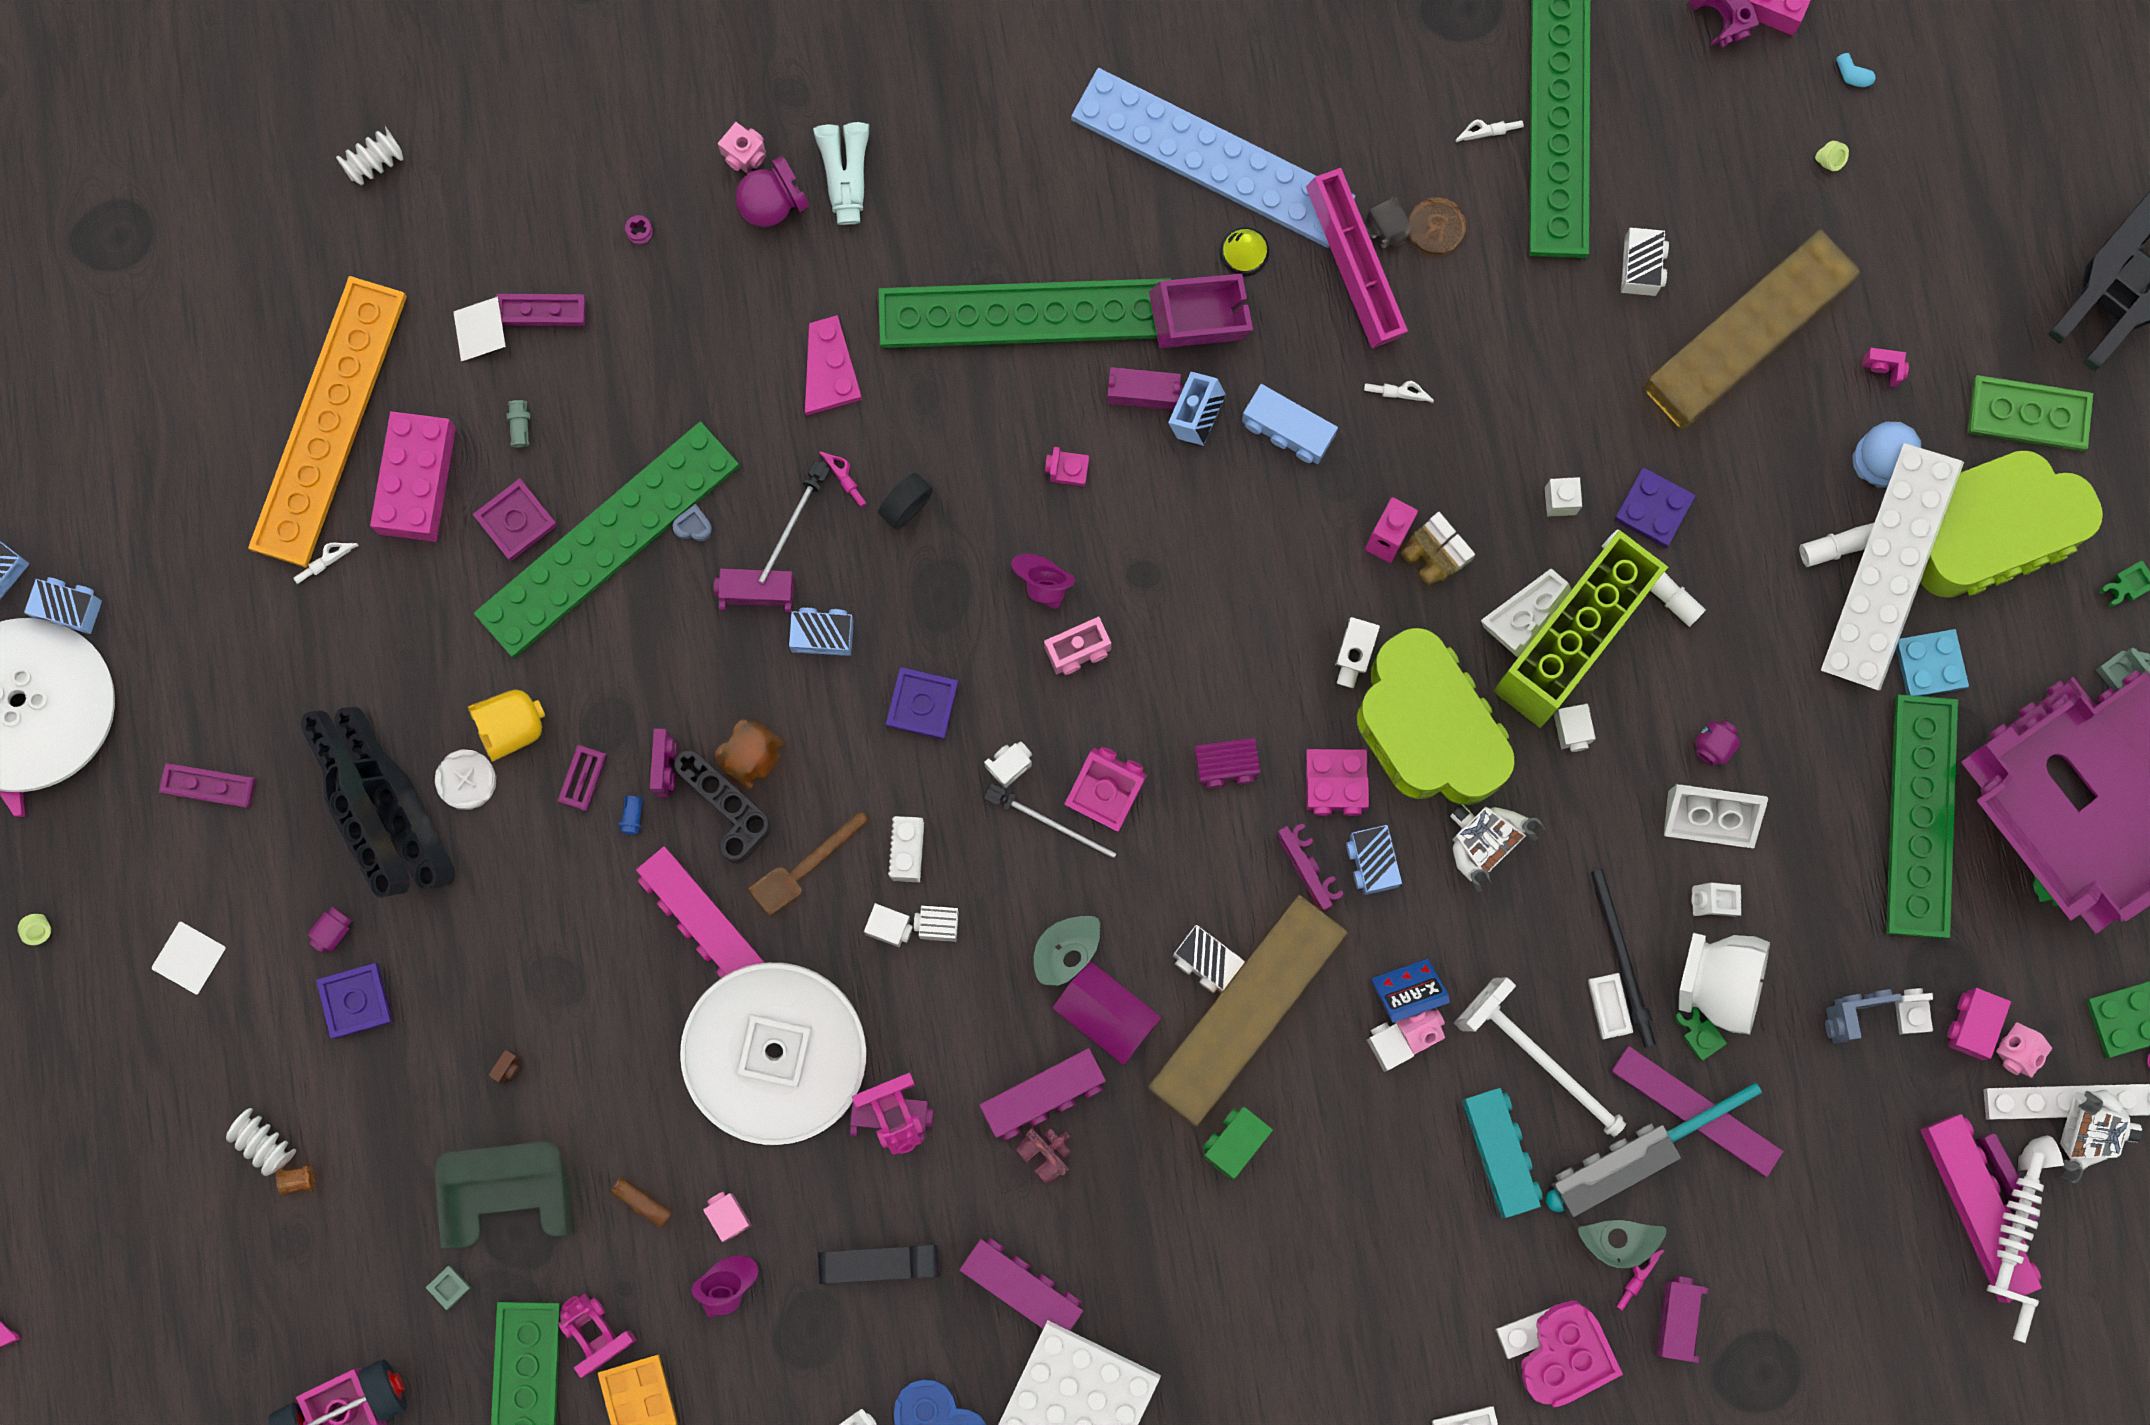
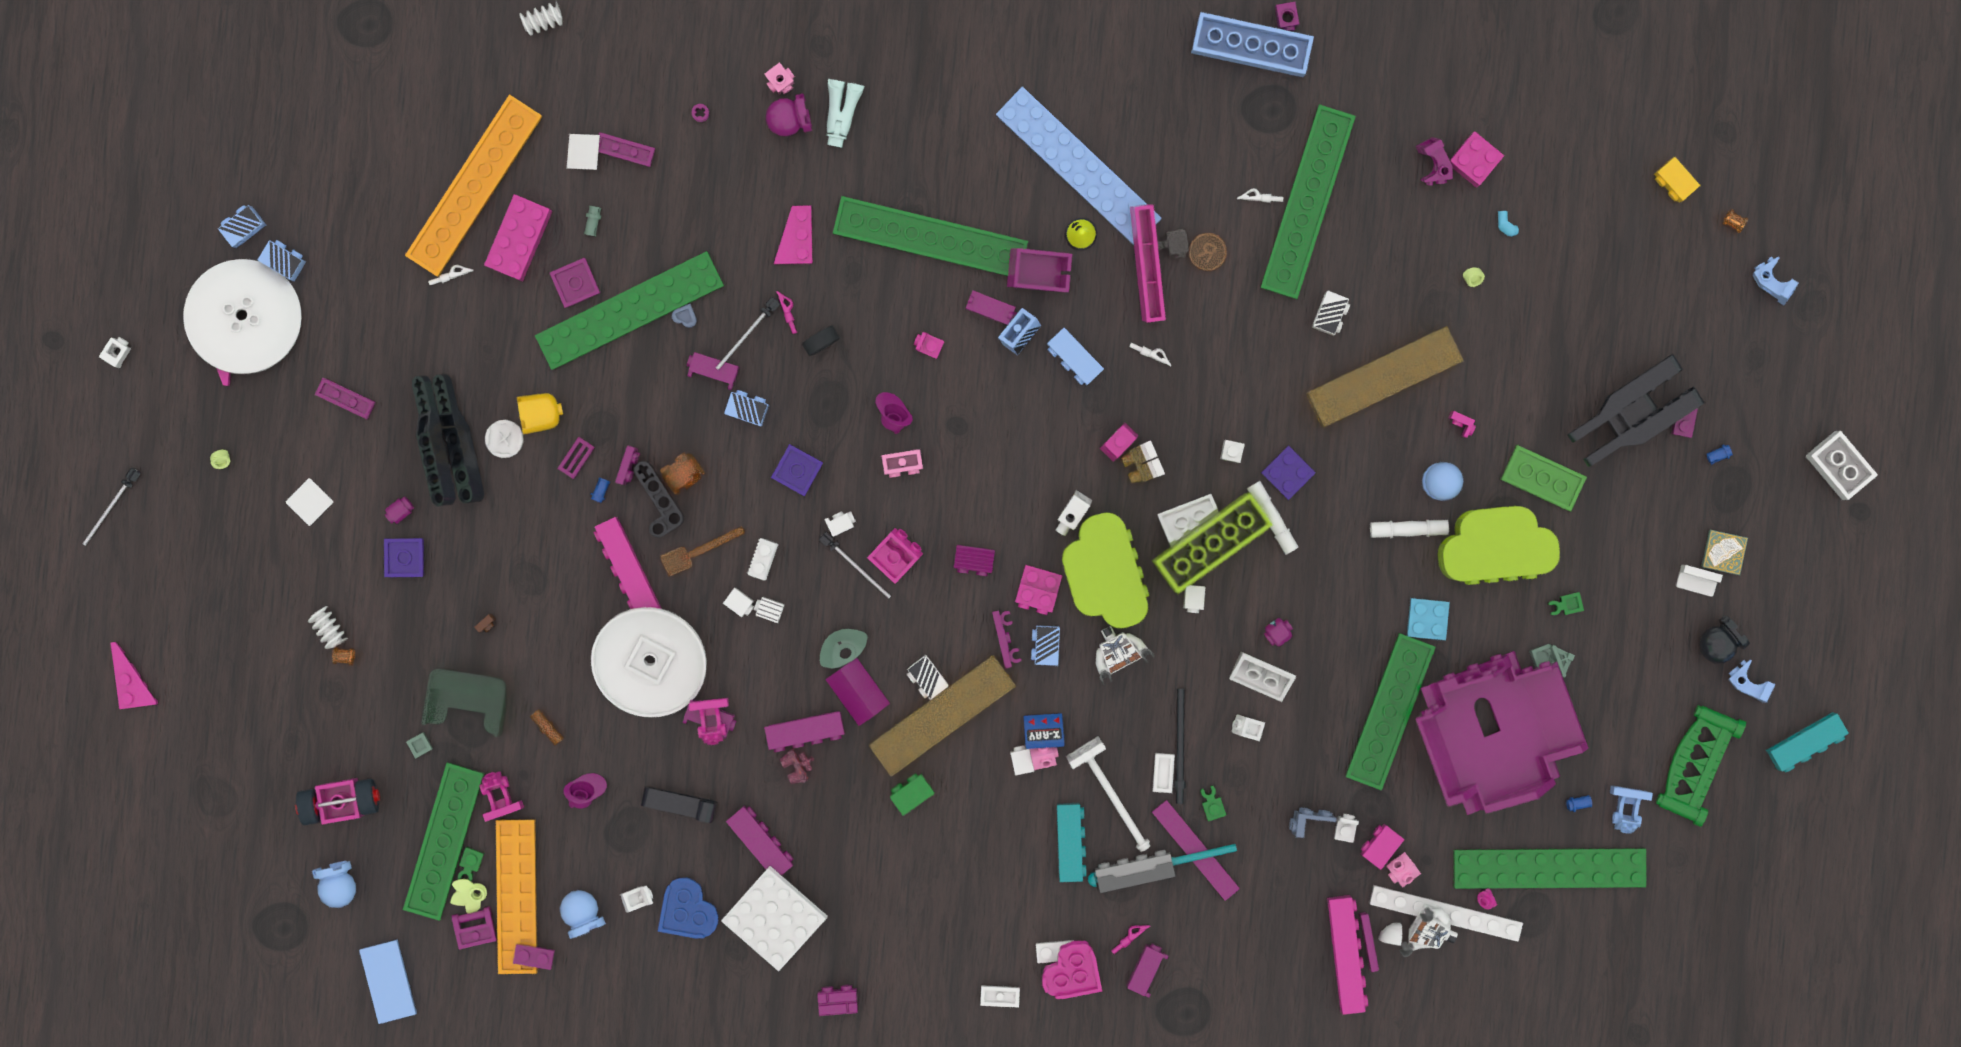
camera: 15 degrees right, 10 degrees up
(726, 1216) = (595, 750): bright pink brick -> none
(1640, 1245) = (1137, 919): sand green piece -> none
(1725, 980) = (1234, 780): white plate -> none
(1892, 566) = (1418, 555): white plate -> none
(2013, 1243) = (1368, 964): white piece -> none

